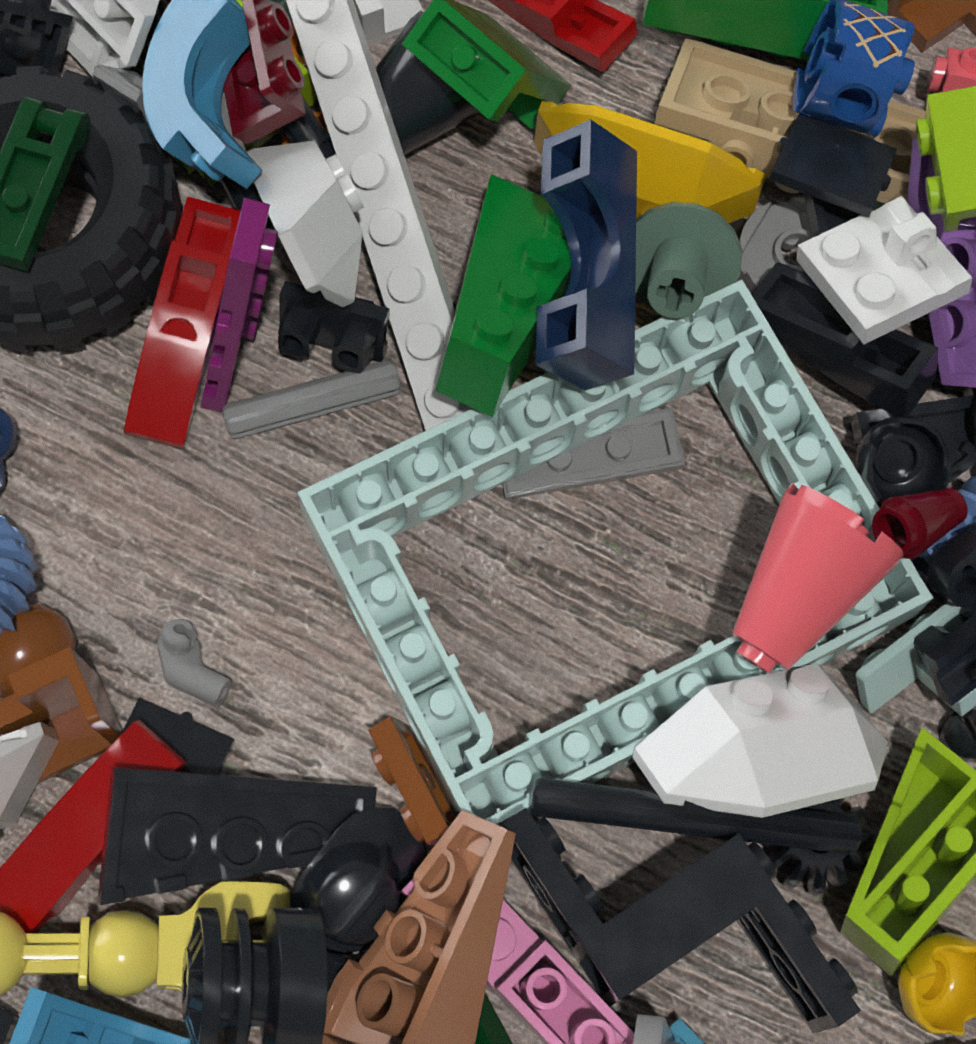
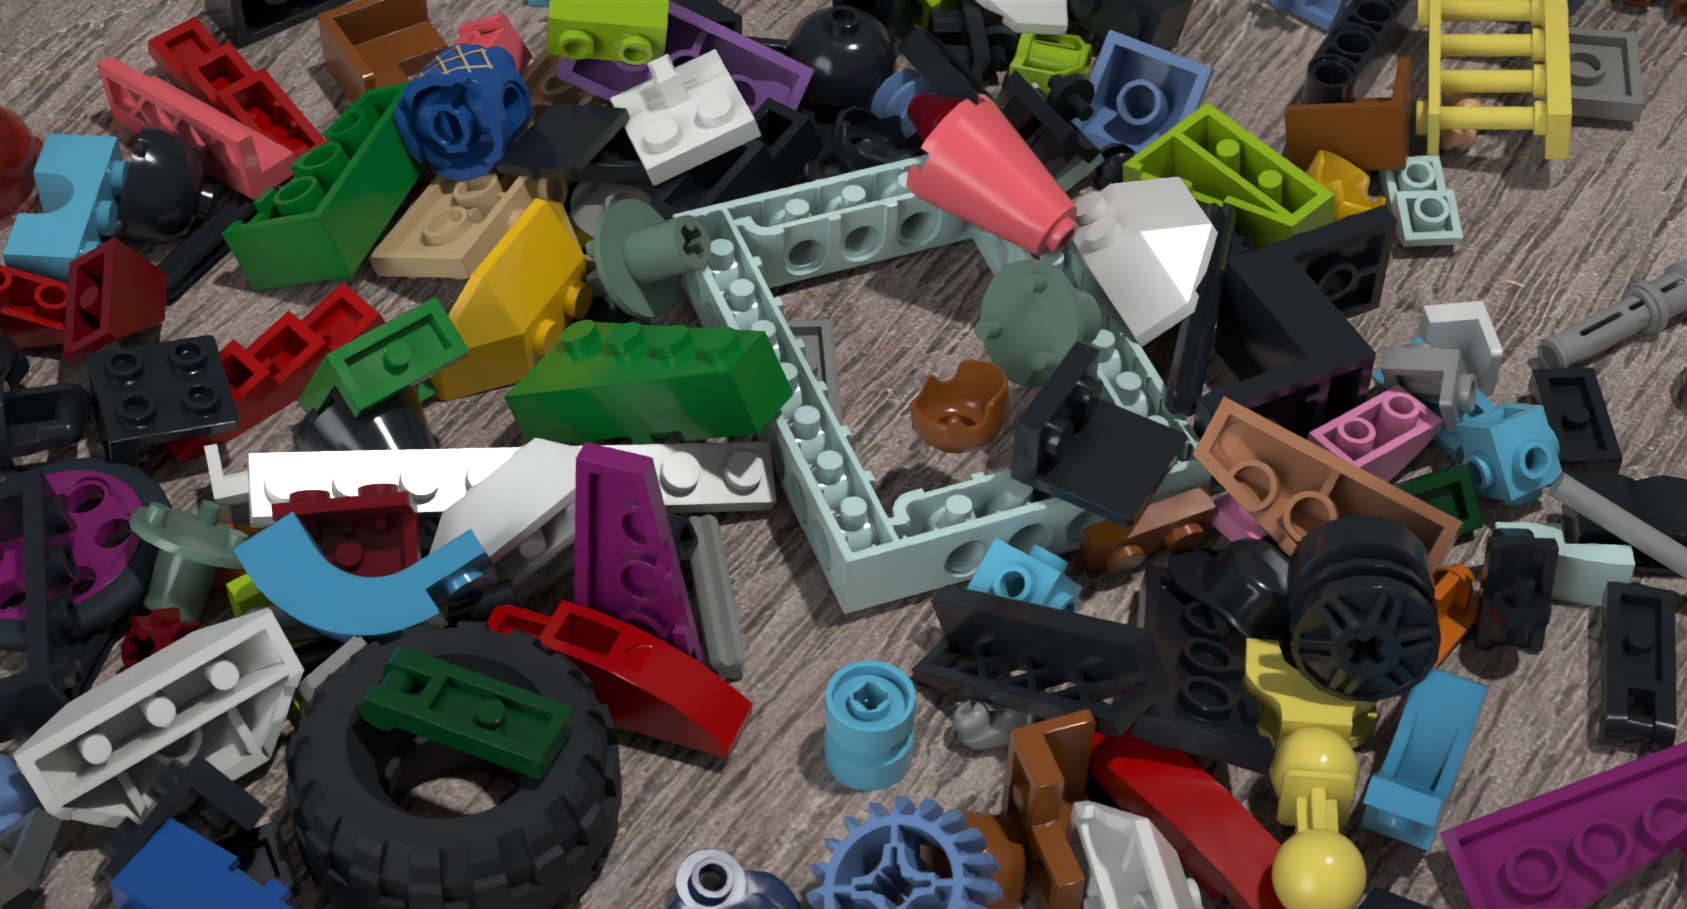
camera: 80 degrees left, 25 degrees down
(148, 542) = (869, 725): none -> medium azure wheel
(209, 691) = (1051, 649): none -> black fence
(319, 668) = (1025, 577): none -> medium azure brick
(450, 709) = (1089, 447): none -> black bracket
(476, 571) = (965, 410): none -> dark orange hair
(593, 191) = (640, 290): dark blue arch -> none
(600, 640) = (1034, 320): none -> sand green piece

